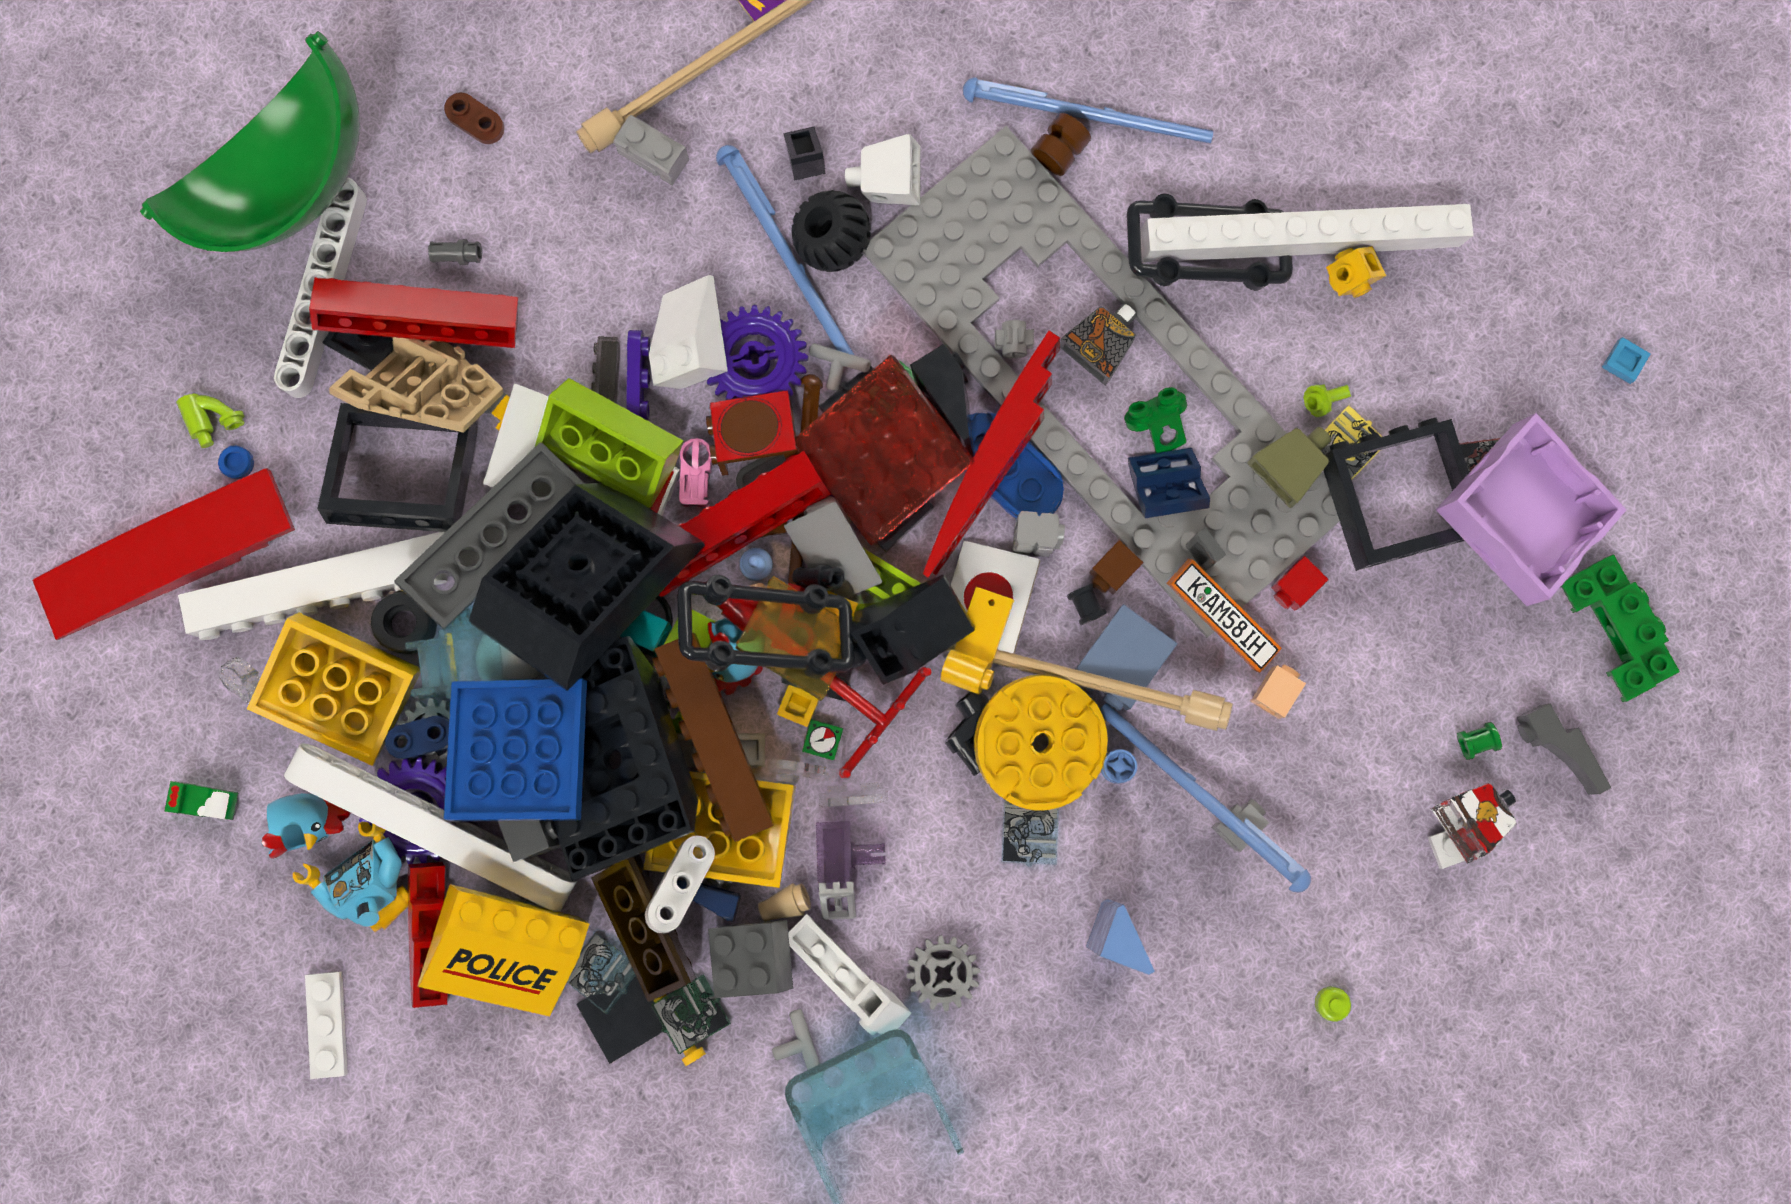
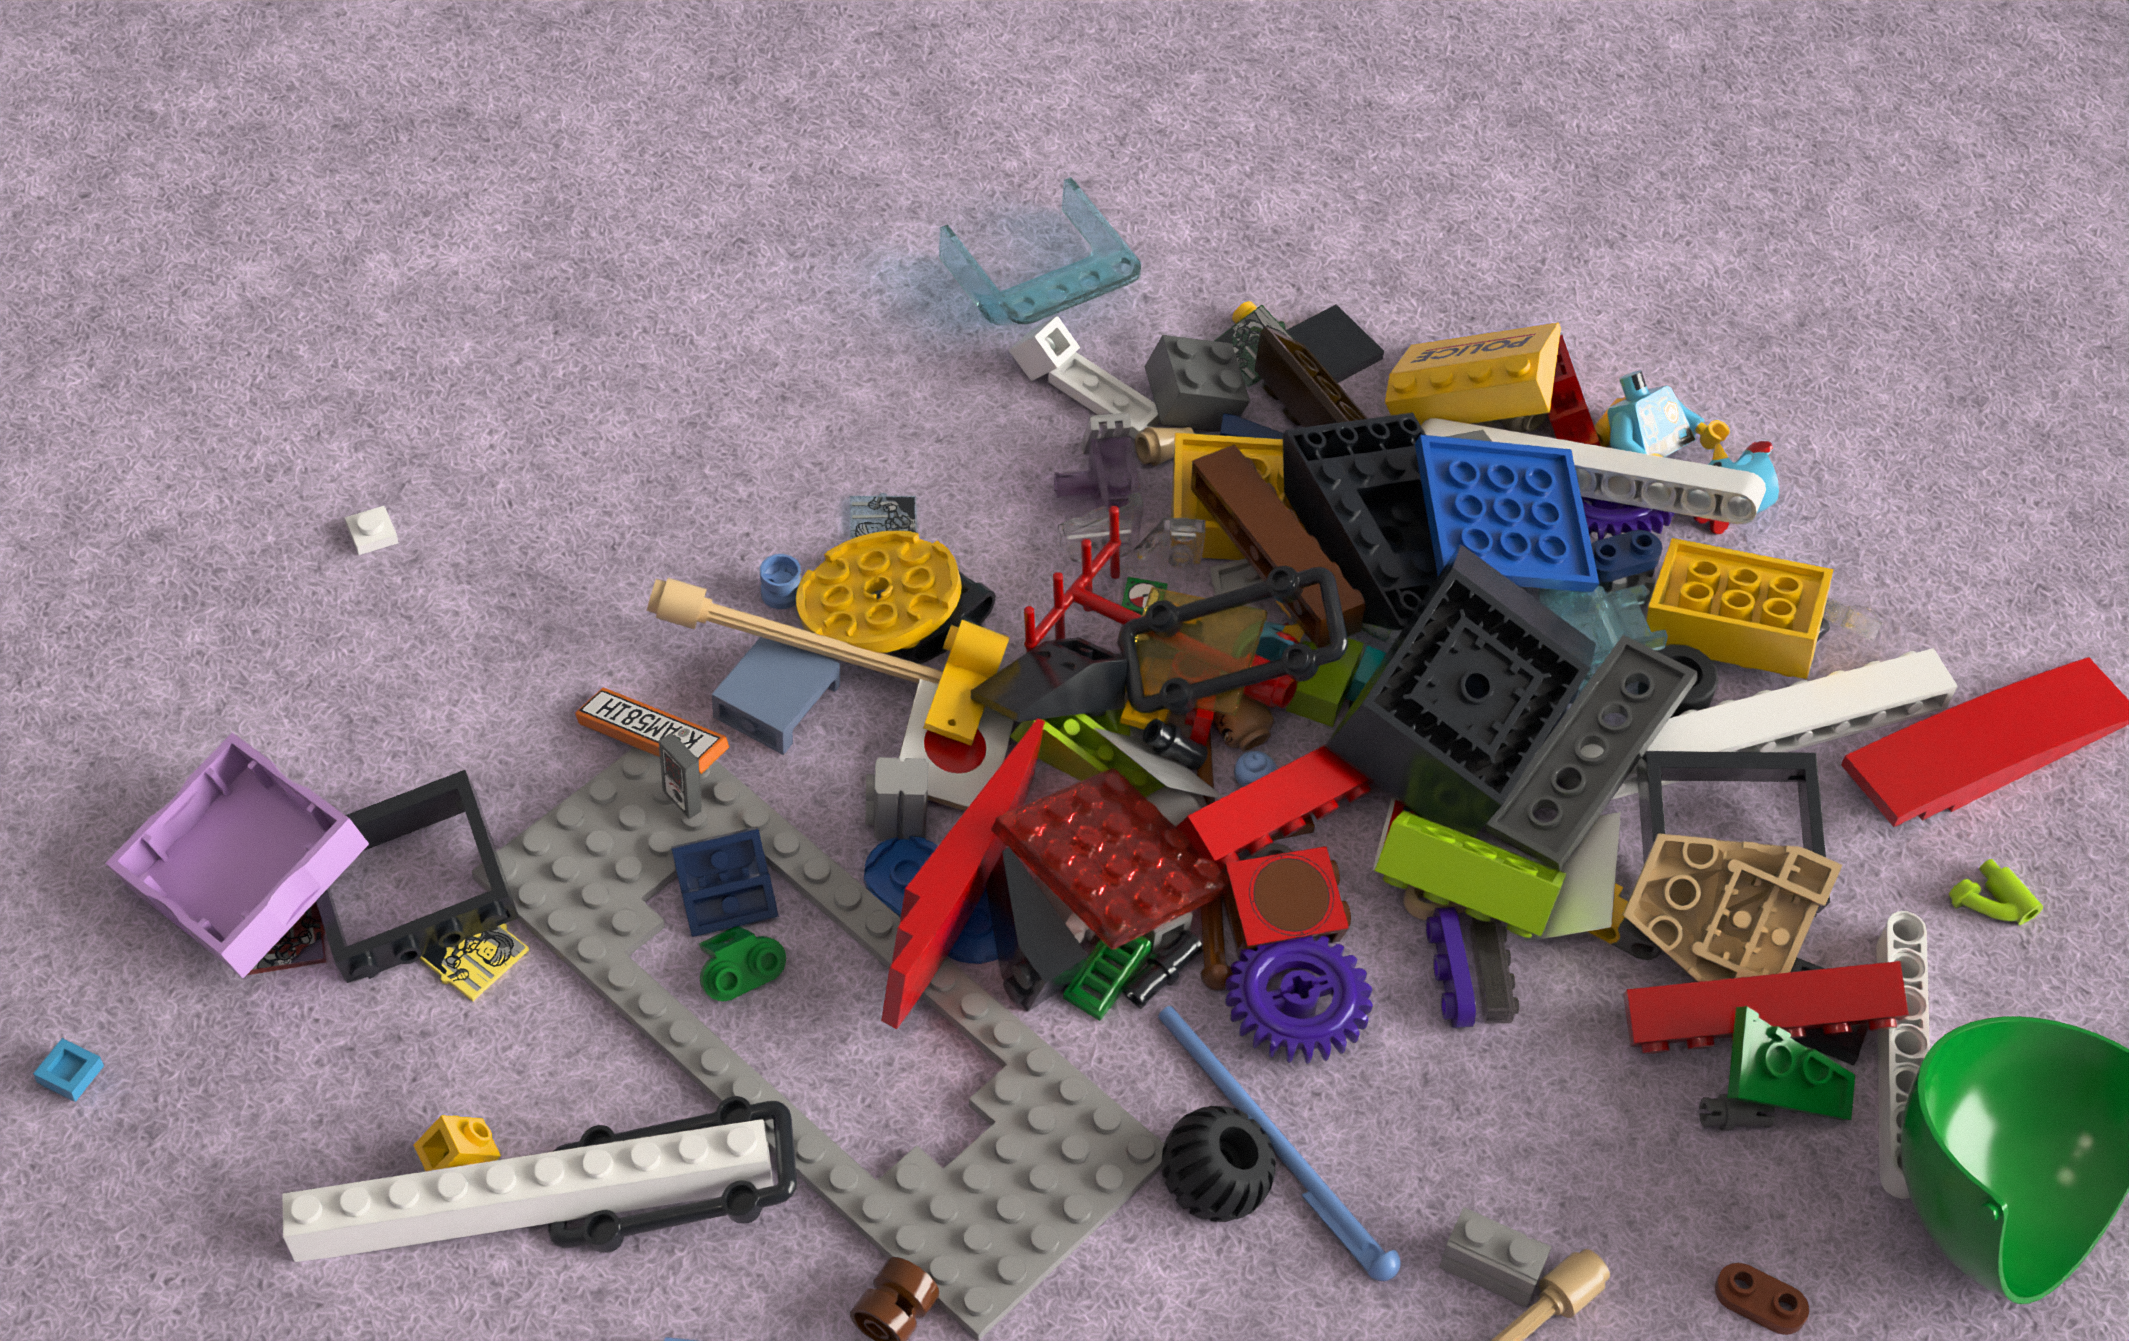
camera: 170 degrees right, 30 degrees down
(200, 801) = (1857, 506): green leg -> none
(235, 462) = (1943, 851): blue tile -> none
(326, 1025) = (1652, 328): white plate -> none
(414, 261) = (1784, 1074): none -> green wing
(601, 973) = (1361, 376): piece -> none
(669, 894) = (1290, 393): white plate -> none
(688, 337) = (1395, 1004): white slope -> none
(694, 478) = (1354, 862): bright pink piece -> none
(801, 1044) = (1128, 331): light grey piece -> none
(804, 153) = (1273, 1271): black slope -> none
(839, 360) = (1182, 1002): light grey piece -> none
(889, 171) = (1145, 1243): white torso -> none
(955, 983) = (975, 389): light grey gear -> none
(1014, 339) = (944, 1040): light grey gear -> none
(1086, 604) = (827, 745): black bush -> none
(1101, 341) = (822, 1046): torso -> none
(1114, 568) = (792, 783): reddish brown brick -> none
(1117, 939) = (780, 381): medium blue slope -> none
(1245, 830) = (627, 506): medium blue bar -> none
(1252, 812) = (629, 531): light grey brick -> none
(1278, 691) = (581, 663): light nougat brick -> none
(1292, 463) = (560, 894): olive torso -> none
(1298, 584) = (550, 776): red brick -> none
(1319, 399) = (514, 1000): lime plate -> none
(1332, 1004) = (522, 383): lime piece -> none
(1477, 819) = (338, 544): torso -> none
(1479, 740) = (313, 626): green bush -> none
(1543, 728) = (223, 628): dark grey slope -> none
(1627, 621) = (115, 754): green bracket -> none

